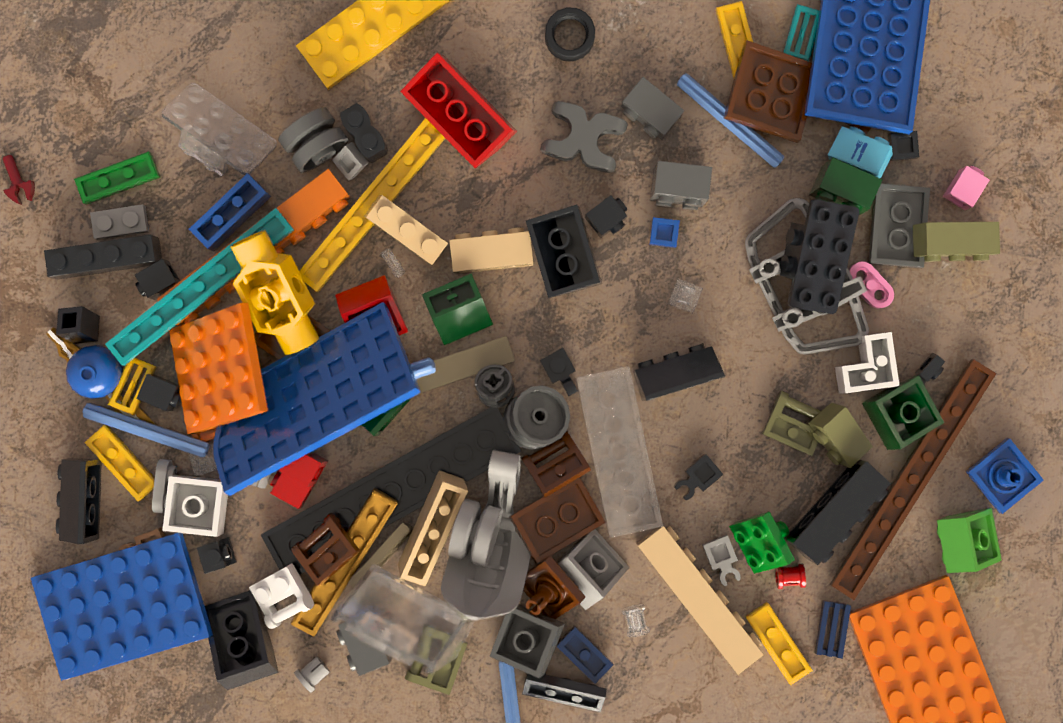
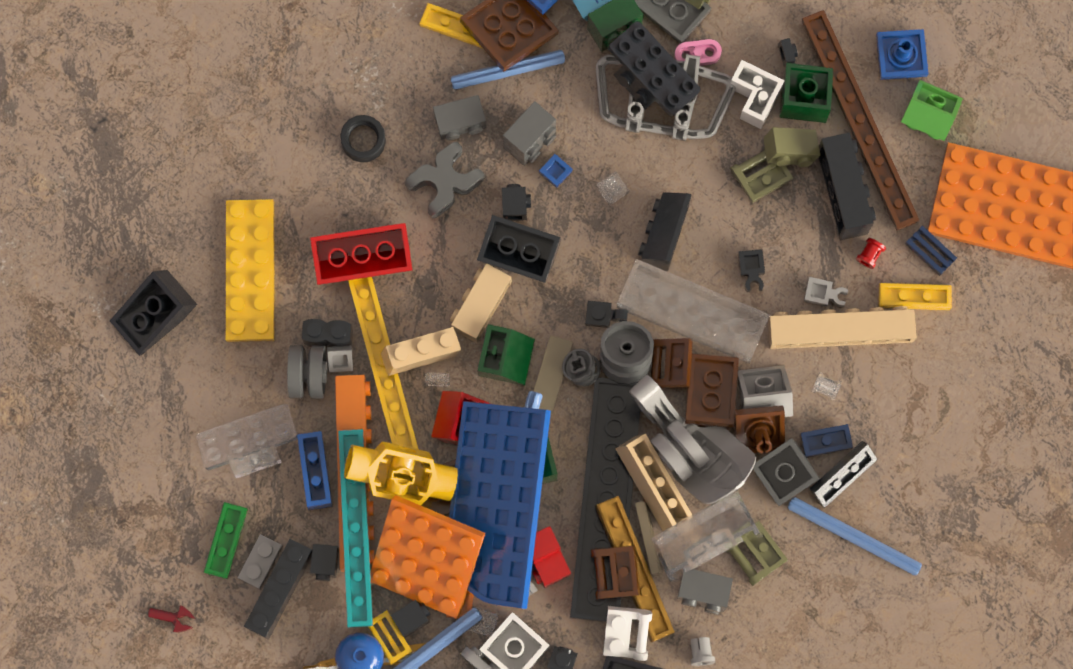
camera: 50 degrees left, 10 degrees down
(78, 325) = (316, 642): black brick -> none
(763, 542) = (831, 254): green plate -> none

